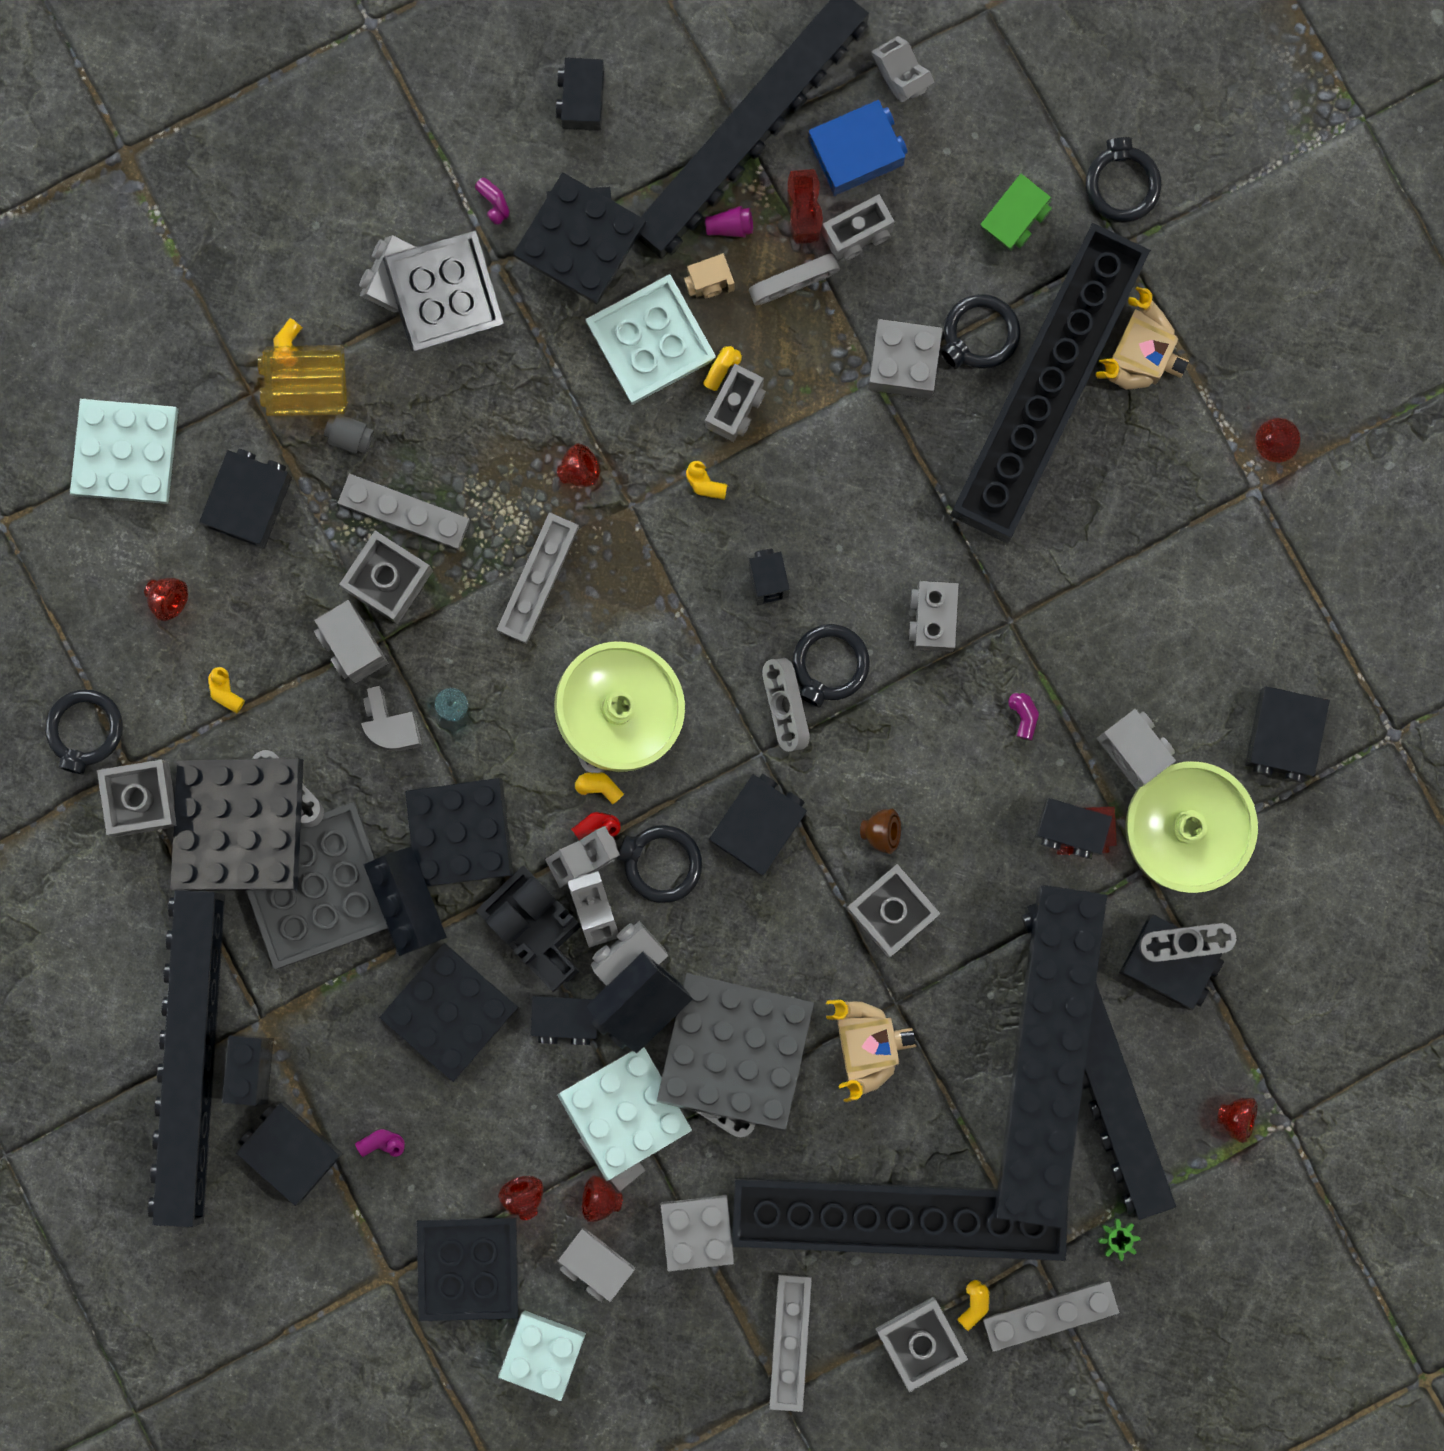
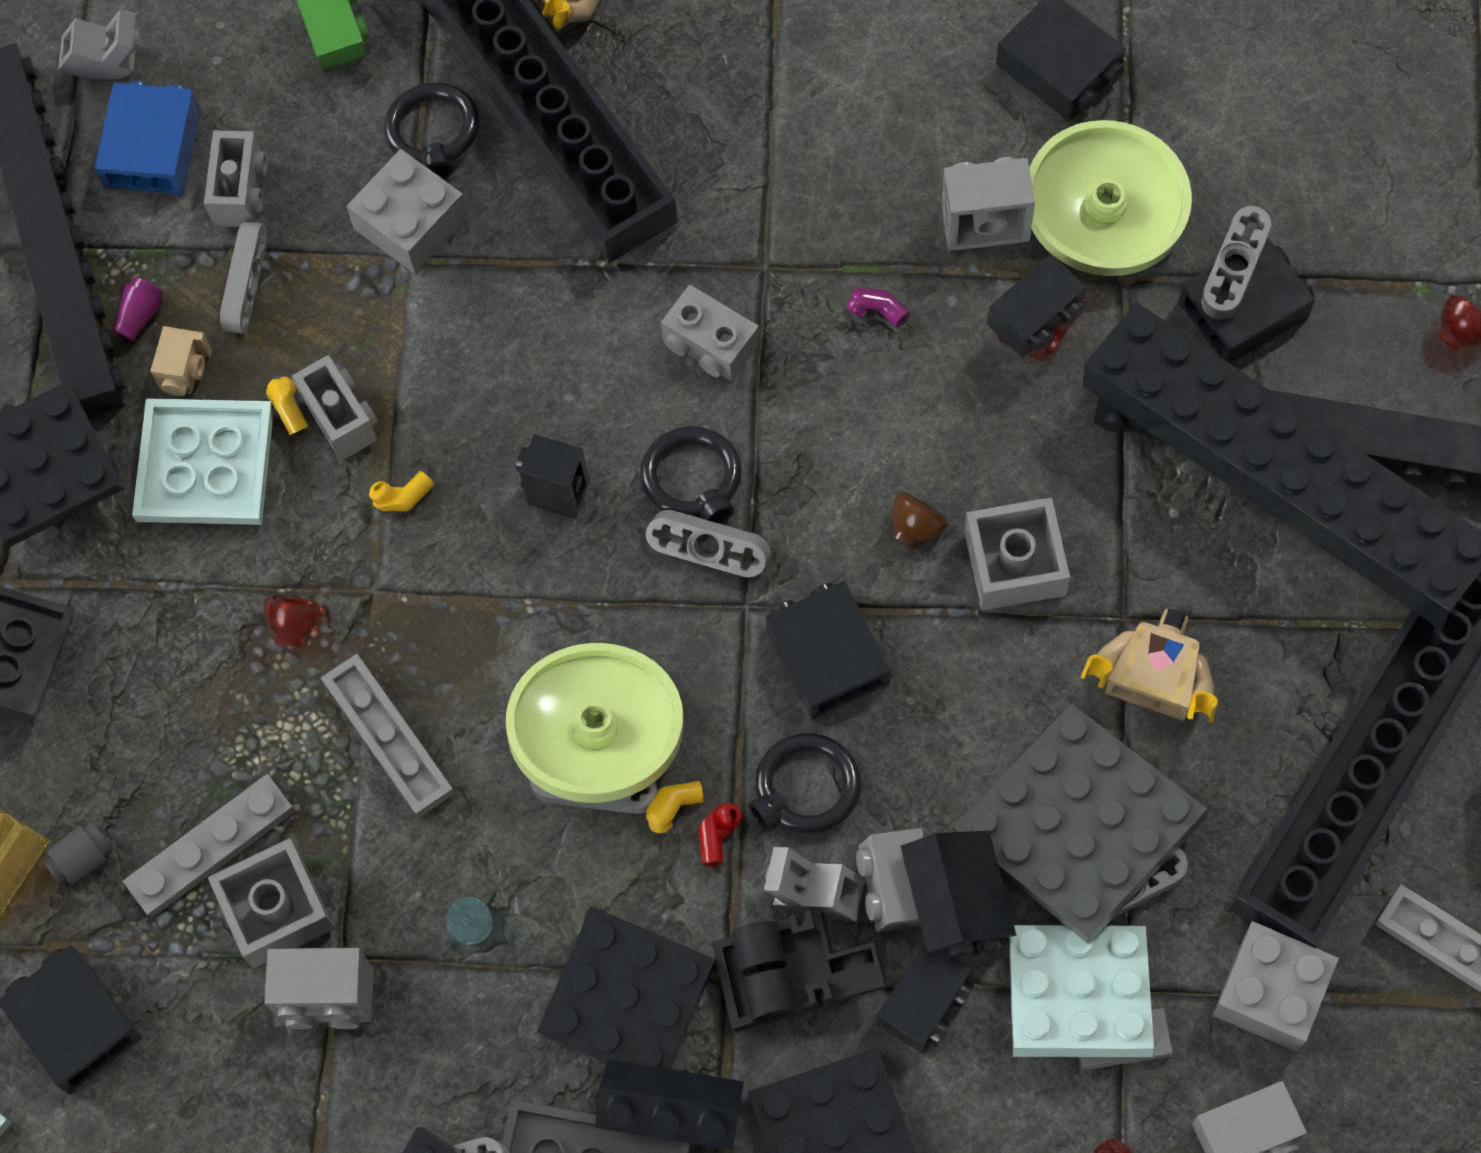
camera: 55 degrees left, 15 degrees down
(387, 732) = (455, 1009): light grey brick -> none
(583, 856) = (744, 862): light grey brick -> none
(600, 1199) = (1169, 1082): clear red brick -> none
(805, 210) = (172, 219): clear red brick -> none

